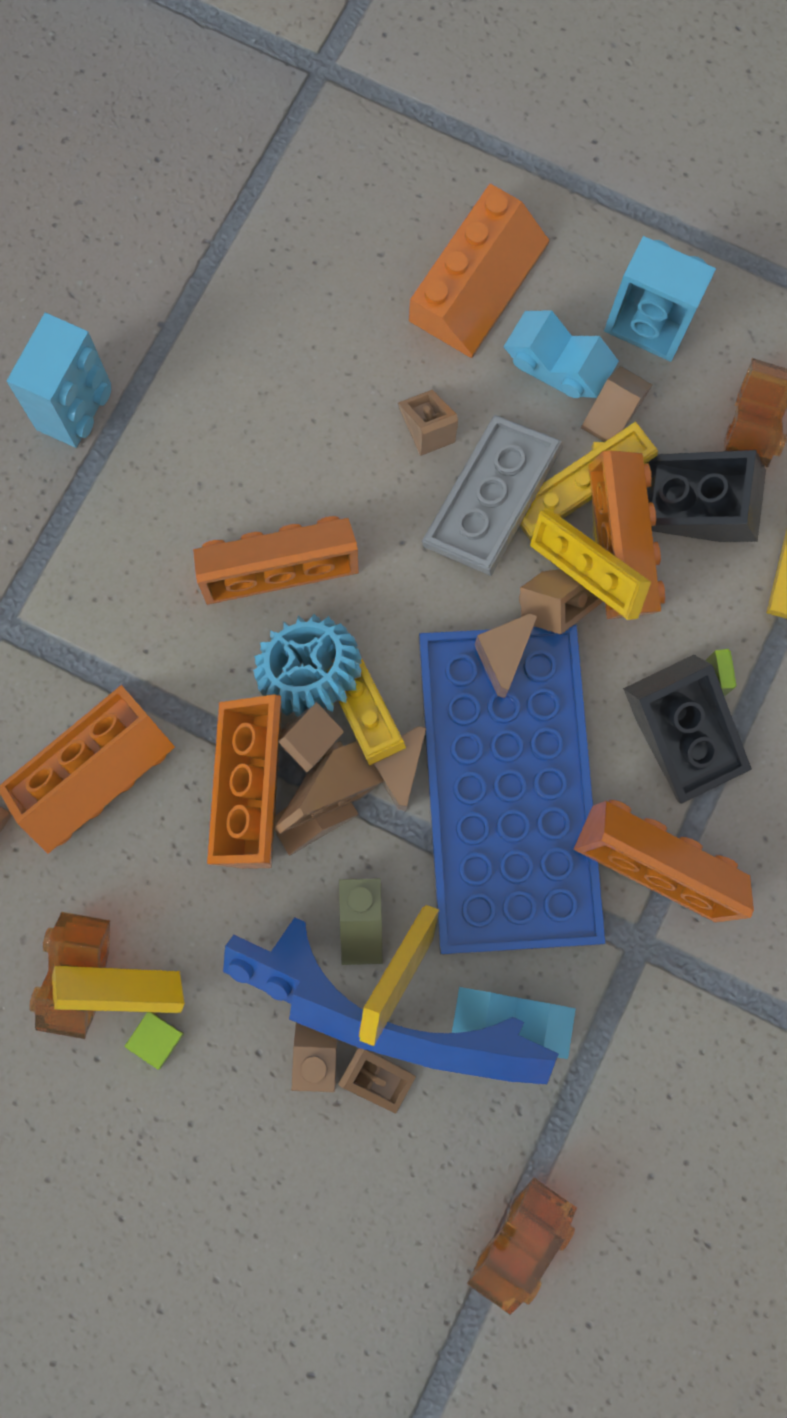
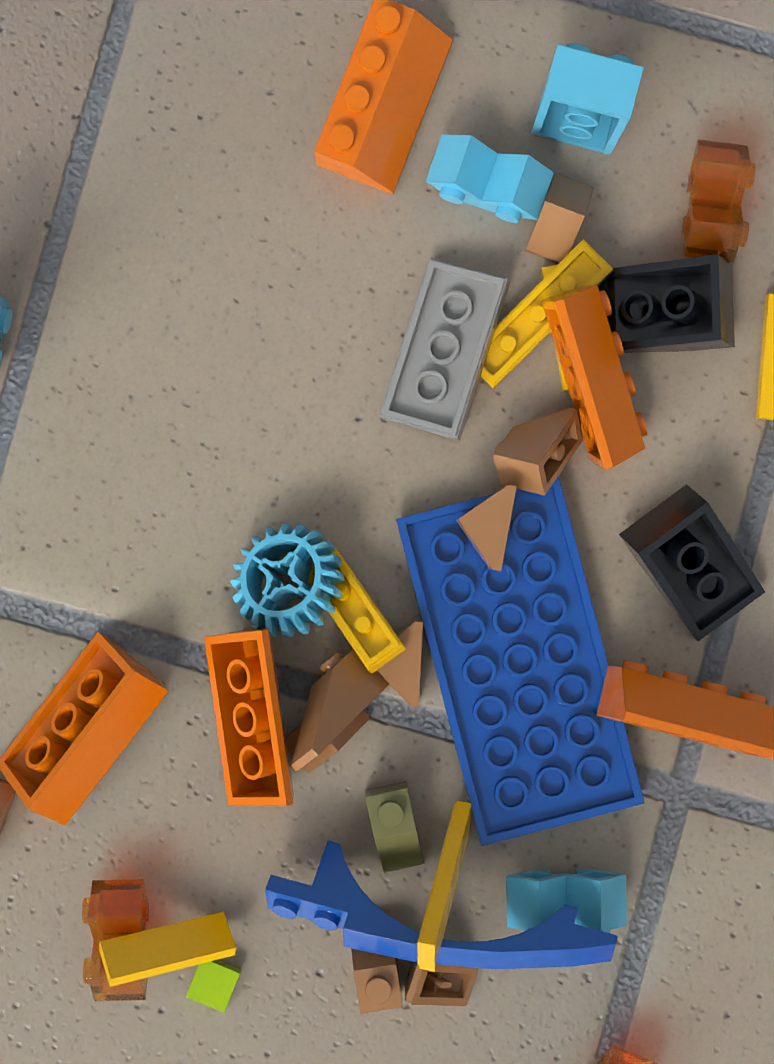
camera: 10 degrees left, 10 degrees up
(276, 560) = (228, 470): orange slope -> none
(309, 736) = (303, 660): medium nougat slope -> none
(429, 421) = (360, 278): medium nougat slope -> none
(590, 564) = (562, 419): yellow tile -> none
(724, 669) = (718, 496): lime tile -> none

